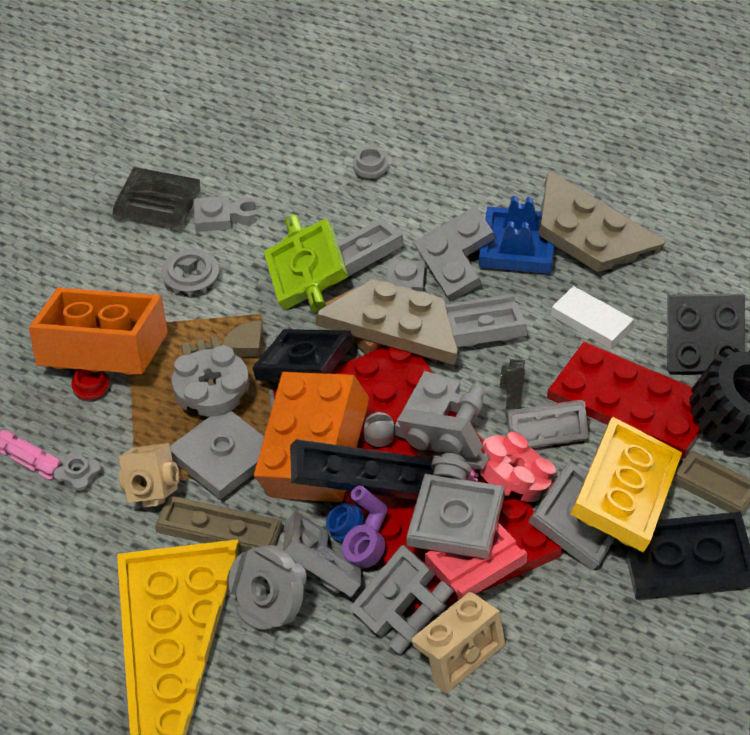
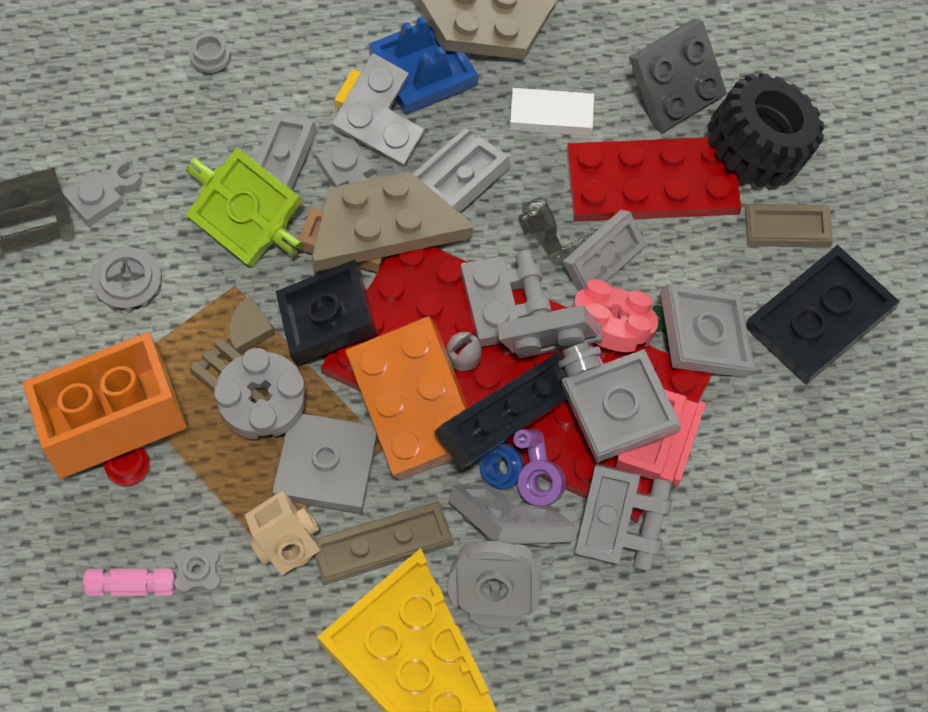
camera: 40 degrees left, 15 degrees up
(460, 640) = (702, 523): tan bracket -> none
(626, 484) = (733, 277): yellow plate -> none

